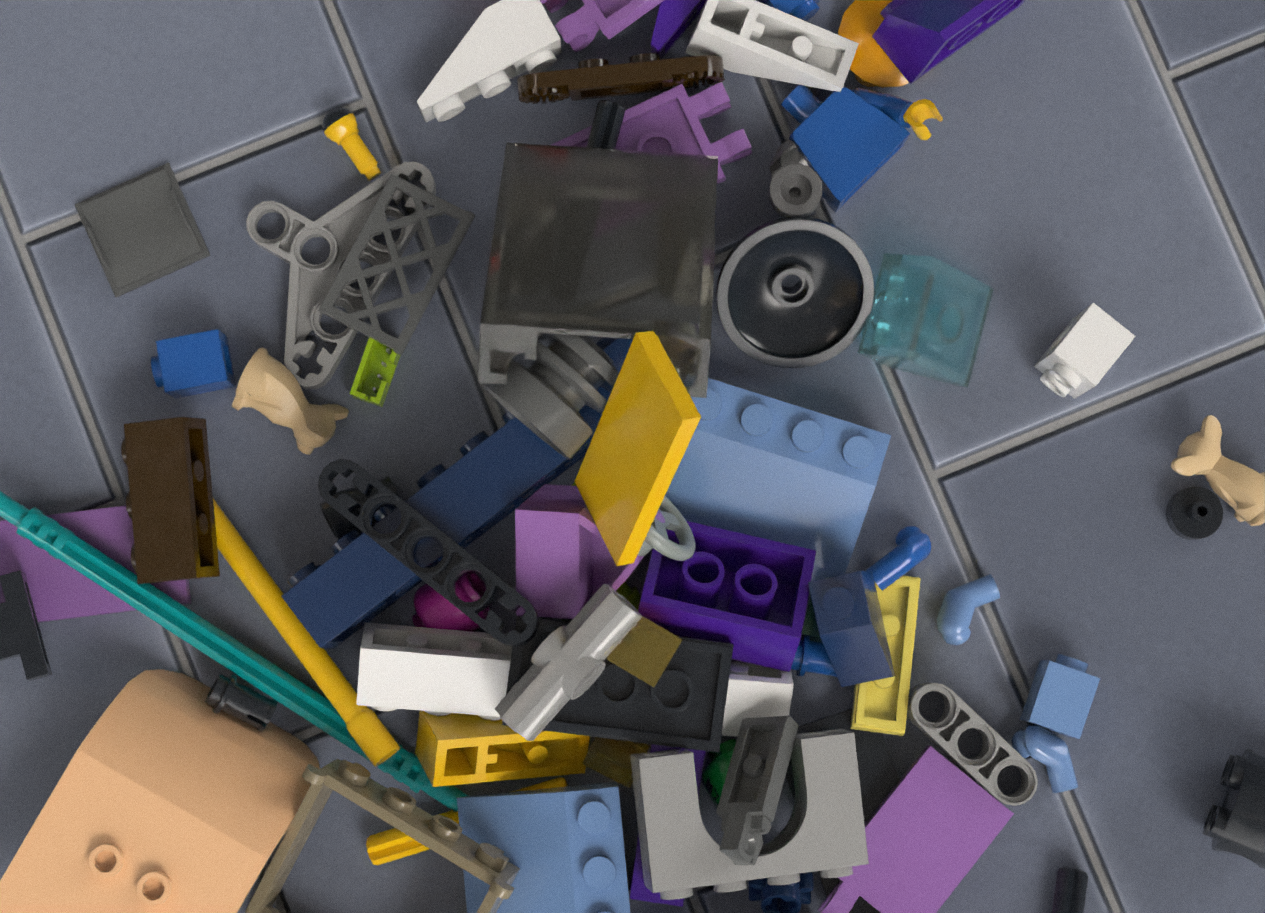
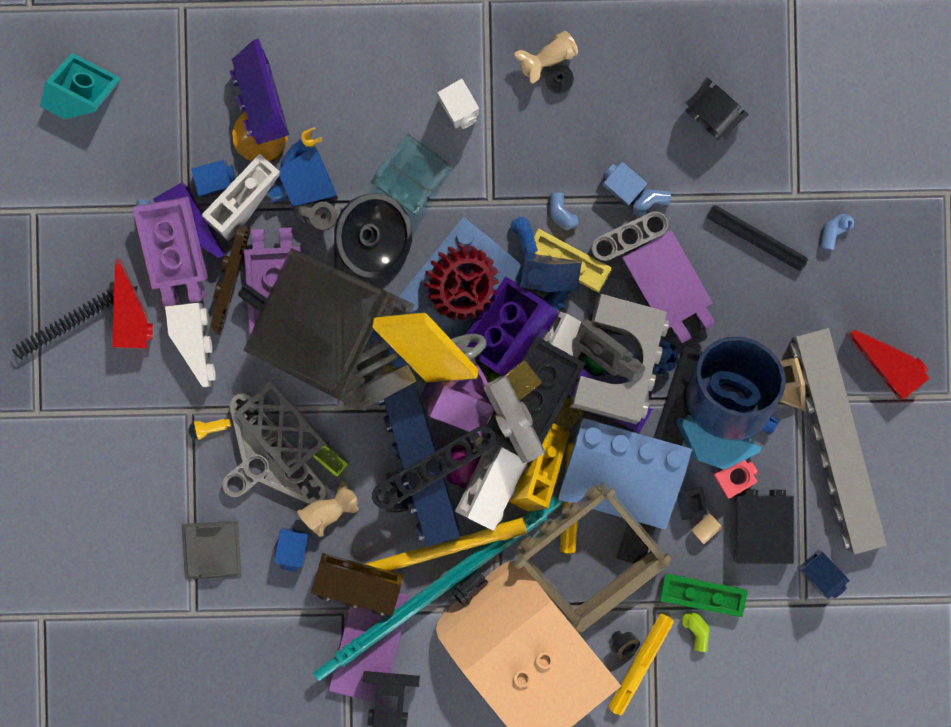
camera: 65 degrees left, 5 degrees up
(807, 501) = (479, 273): none -> dark red gear

